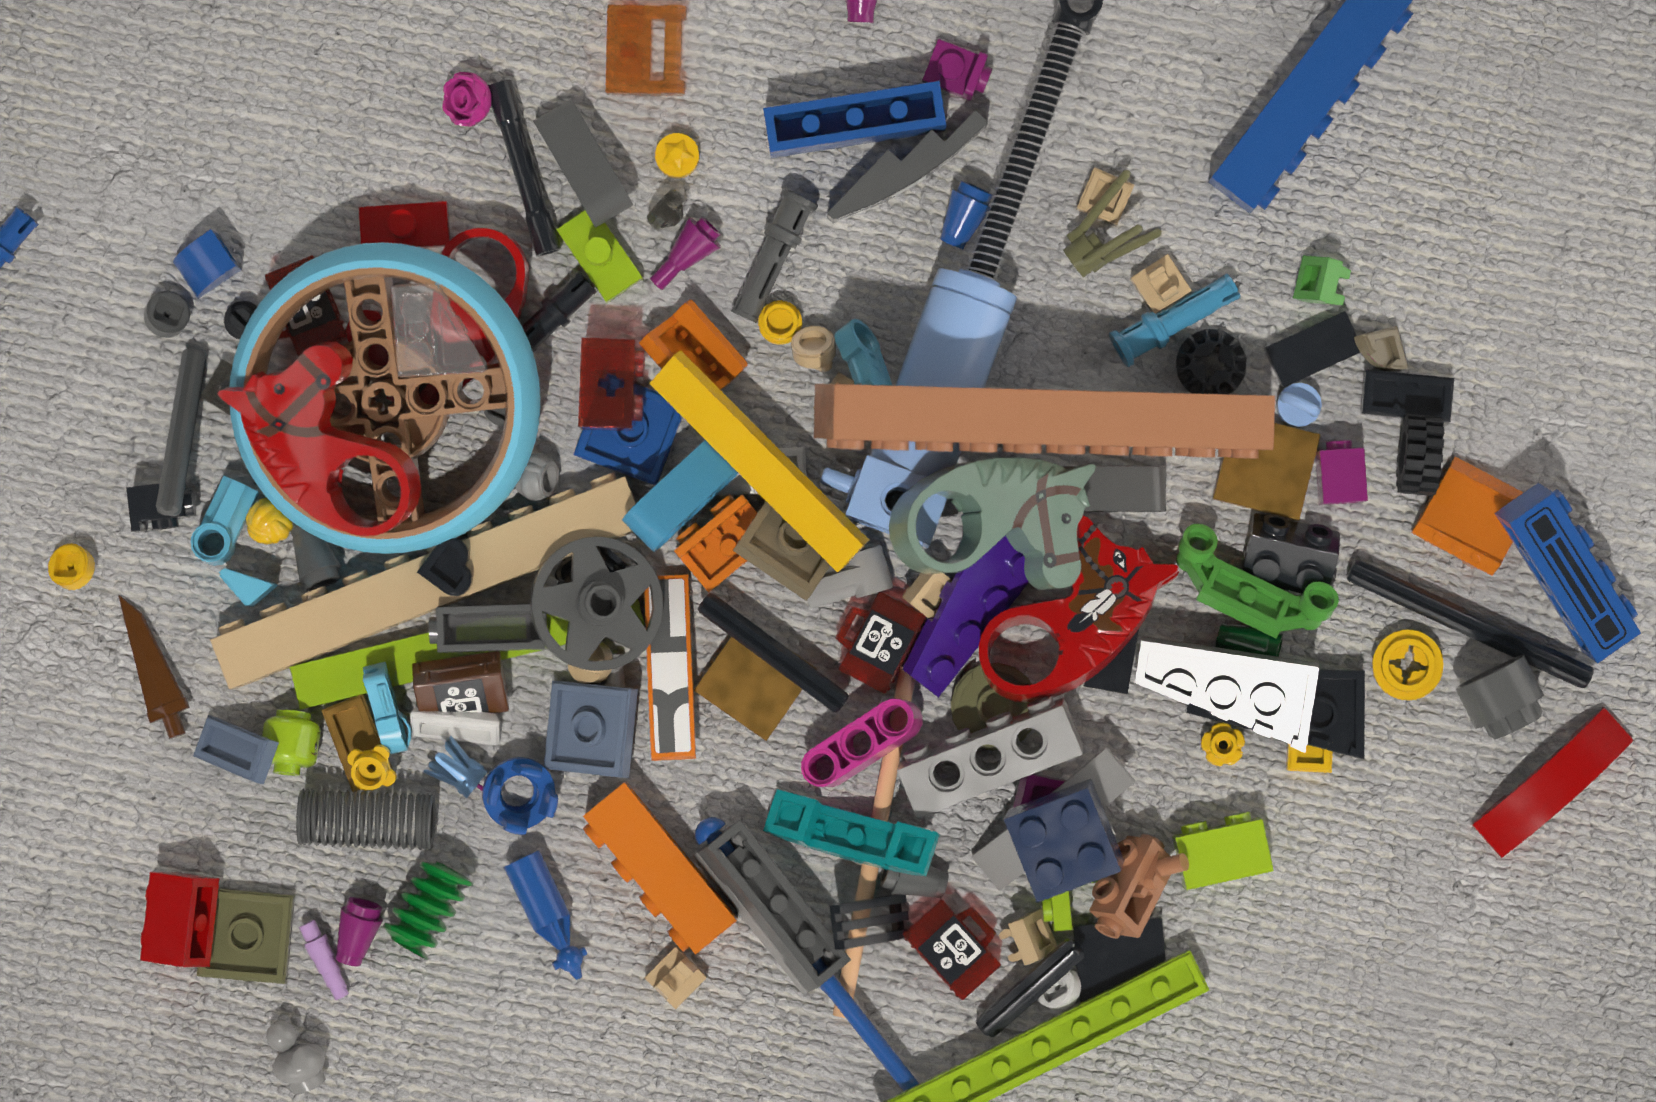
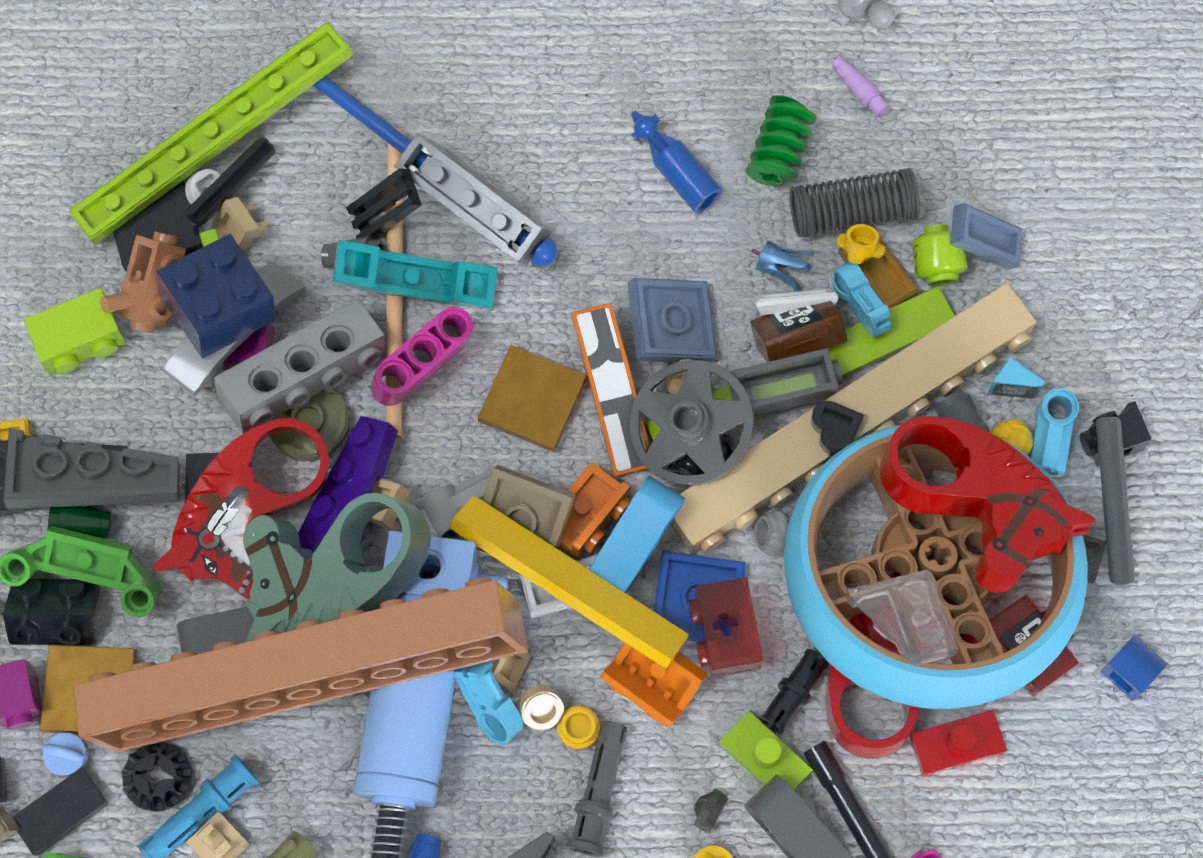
camera: 165 degrees right, 15 degrees down
(71, 566) = (1178, 366): yellow tile -> none
(157, 682) = (1070, 283): reddish brown bar -> none
(166, 314) = (1158, 611): dark grey tile -> none
(179, 919) = (995, 87): red brick -> none
(237, 317) = (1090, 624): black piece -> none
(251, 936) = (934, 93): olive tile -> none
(357, 929) = (838, 115): magenta cone -> none
(519, 818) = (721, 234): blue piece -> none
(660, 868) = (582, 215): orange brick -> none
(675, 977) = (548, 133): tan tile -> none
(693, 244) = (676, 785): magenta cone -> none
(773, 652) = (520, 419): black axle -> none
(880, 641) = (424, 451): piece -> none
(953, 948) = (306, 204): piece -> none
(1229, 755) = (92, 416): yellow plate -> none

